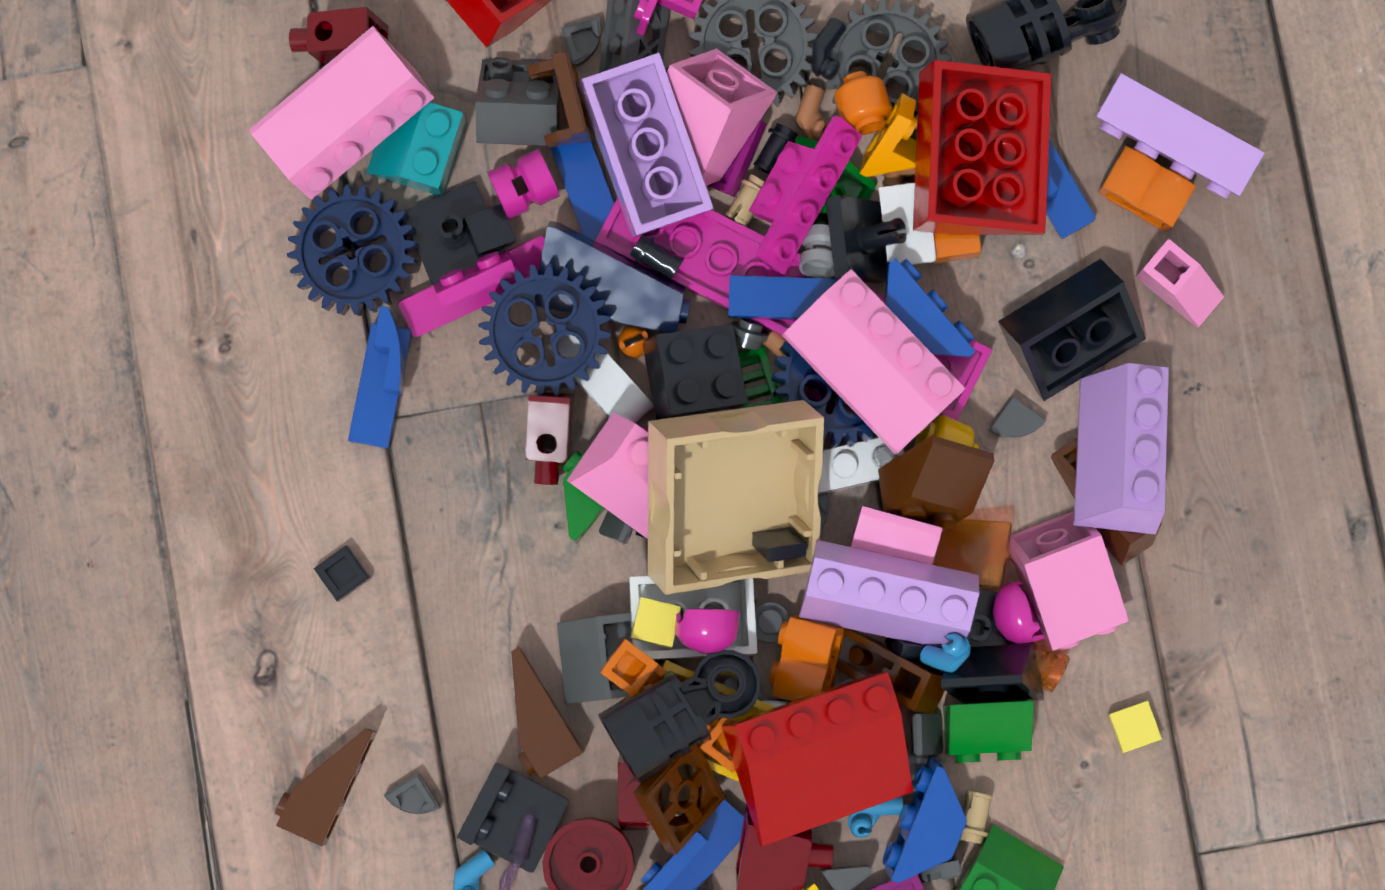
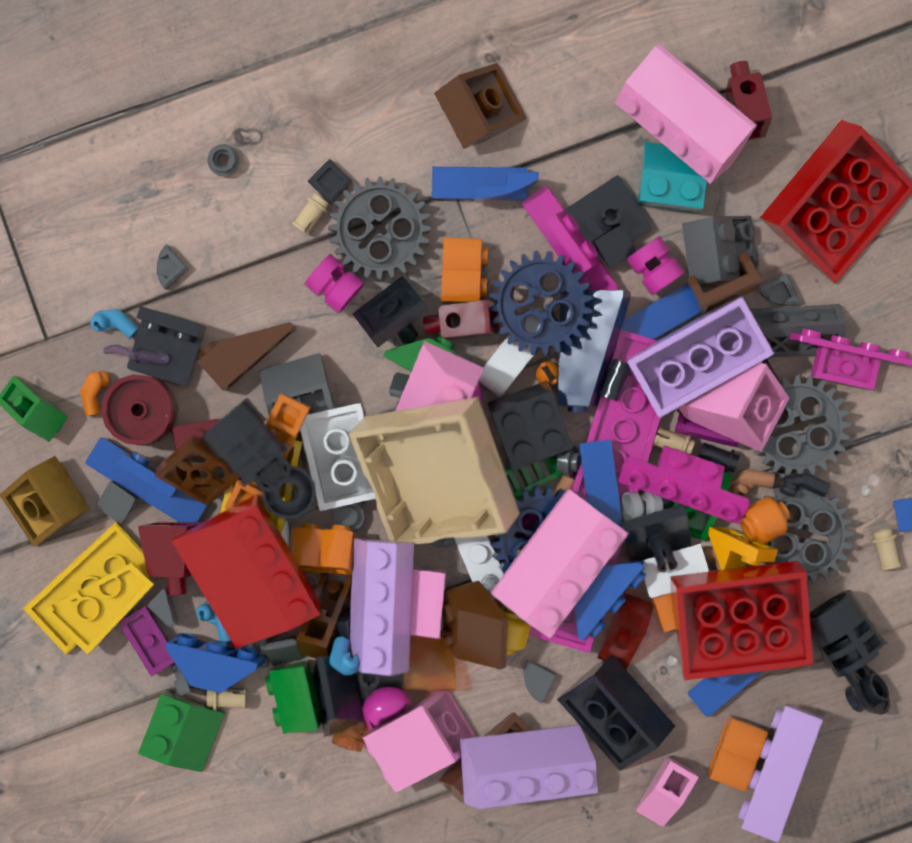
camera: 75 degrees right, 5 degrees up
(277, 703) = (218, 151): none -> dark grey plate
(282, 367) = (480, 105): none -> reddish brown slope
(320, 797) = (152, 195): reddish brown slope -> none
(343, 216) = (606, 129): dark blue gear -> none
(378, 603) = (311, 213): none -> tan pin
(383, 540) = (359, 208): none -> dark grey gear
(473, 588) = (334, 283): none -> dark pink wheel
(485, 424) = (463, 270): none -> orange brick
(523, 521) = (392, 313): none -> black tile
(655, 622) = (328, 429): light yellow tile -> none
(707, 629) = (327, 470): dark pink hair -> none
(779, 544) = (406, 513): black tile -> none
(971, 298) = (626, 630): none -> clear red slope
(1134, 726) = (317, 809): light yellow tile -> none

